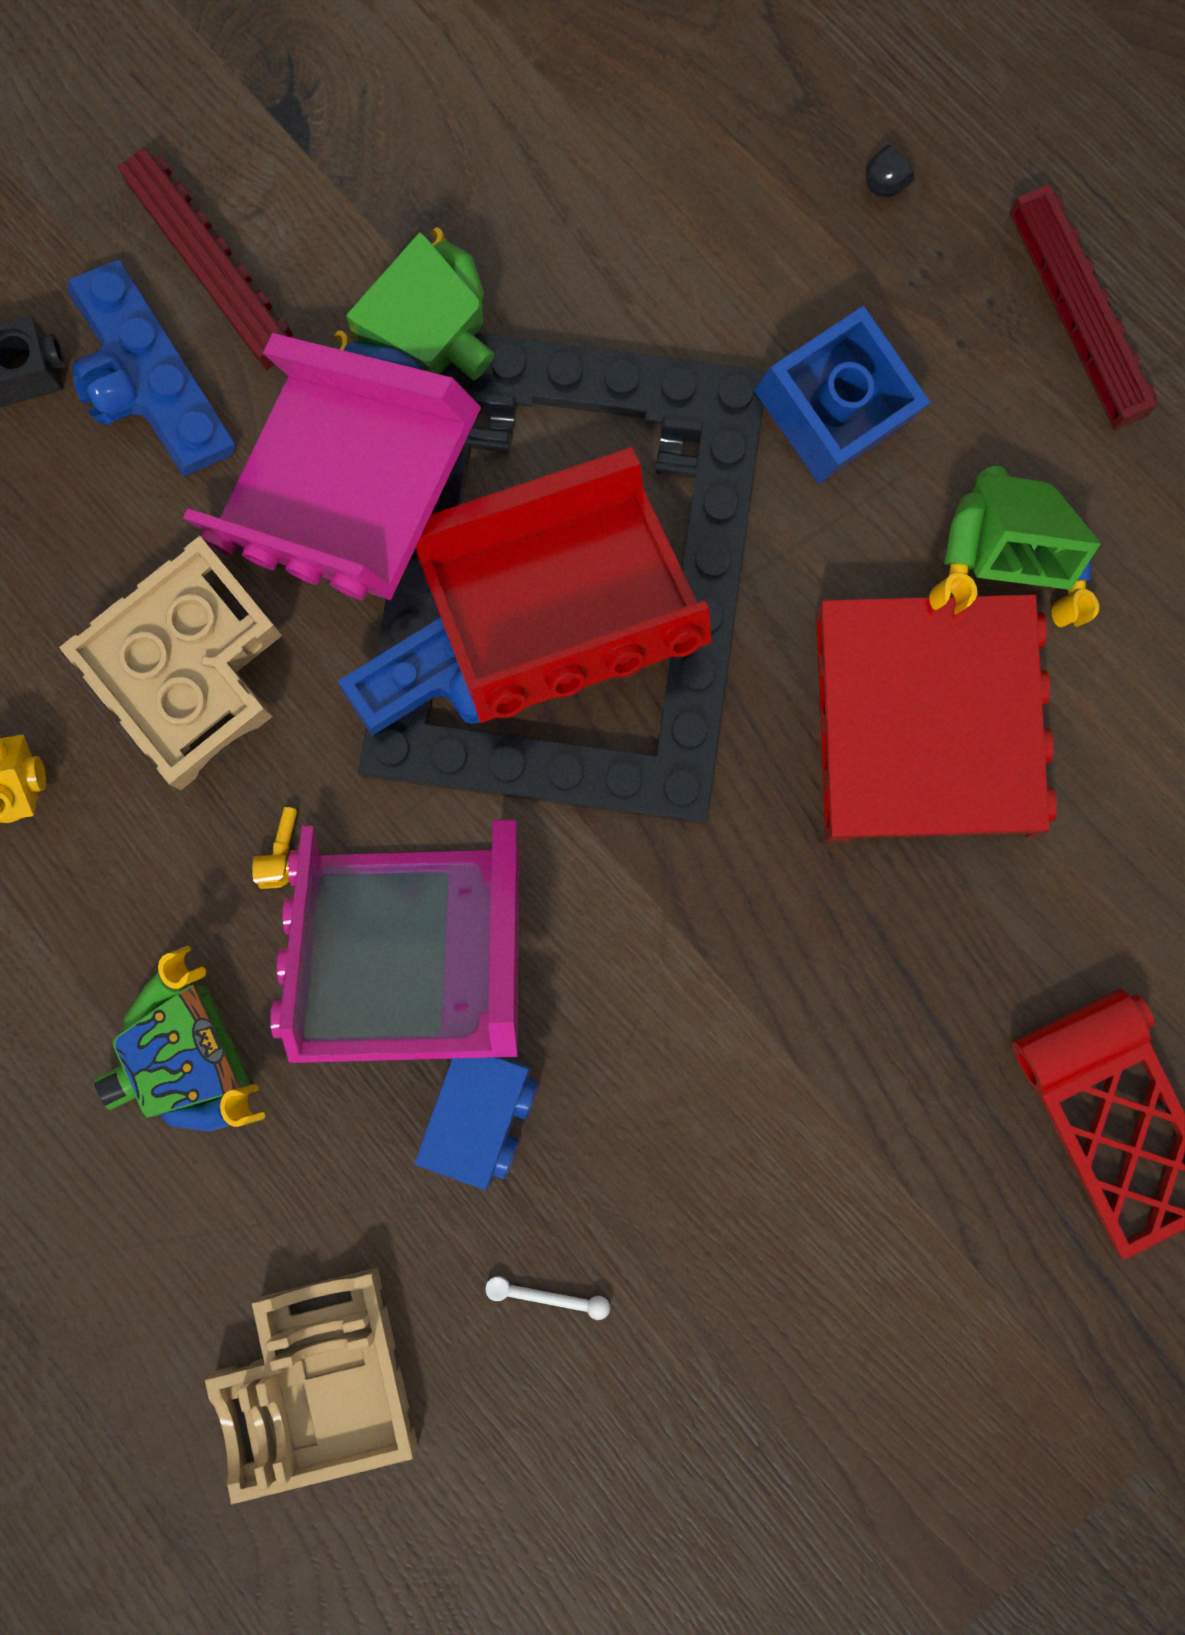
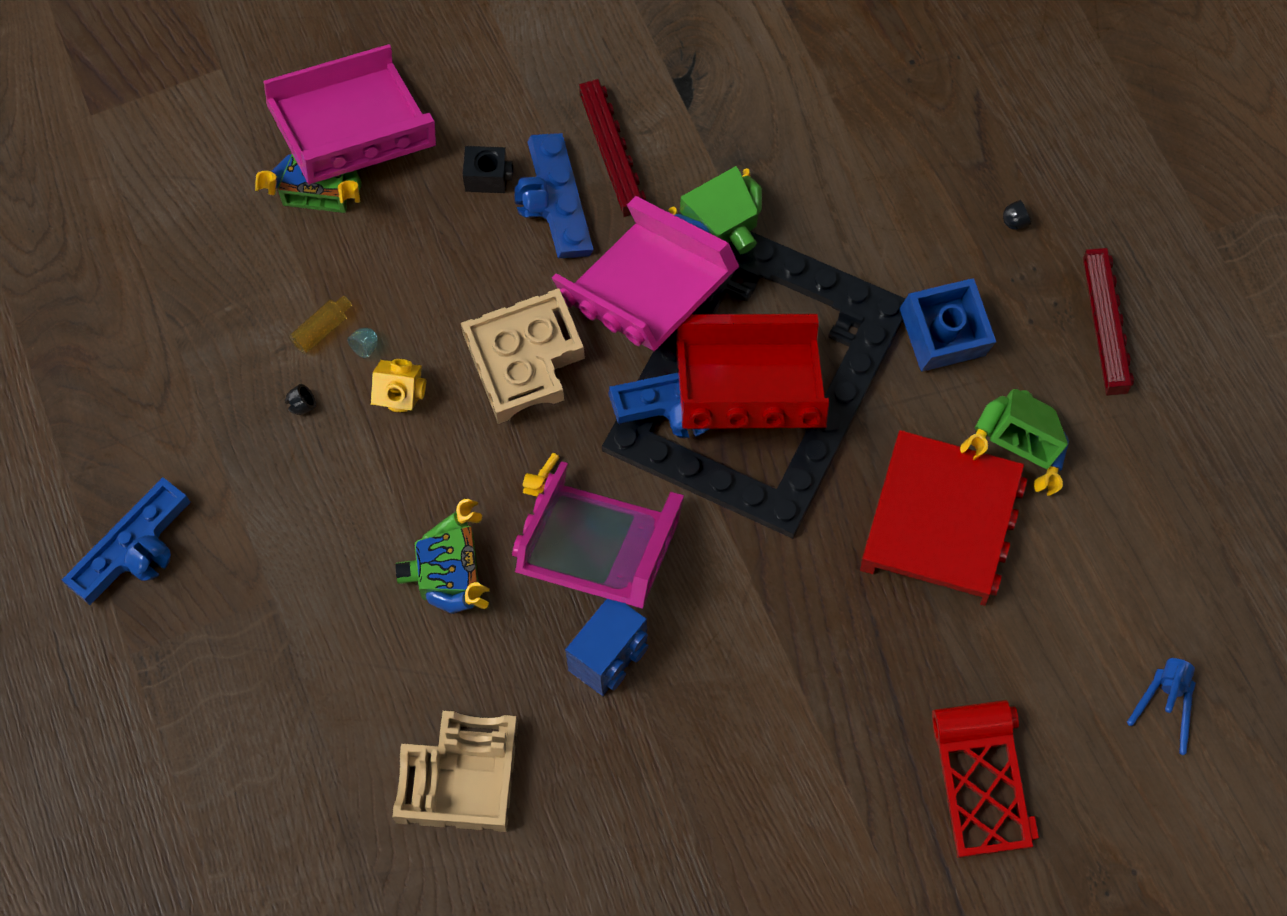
camera: 15 degrees right, 15 degrees down
(499, 1288) = (584, 757): white hinge -> none

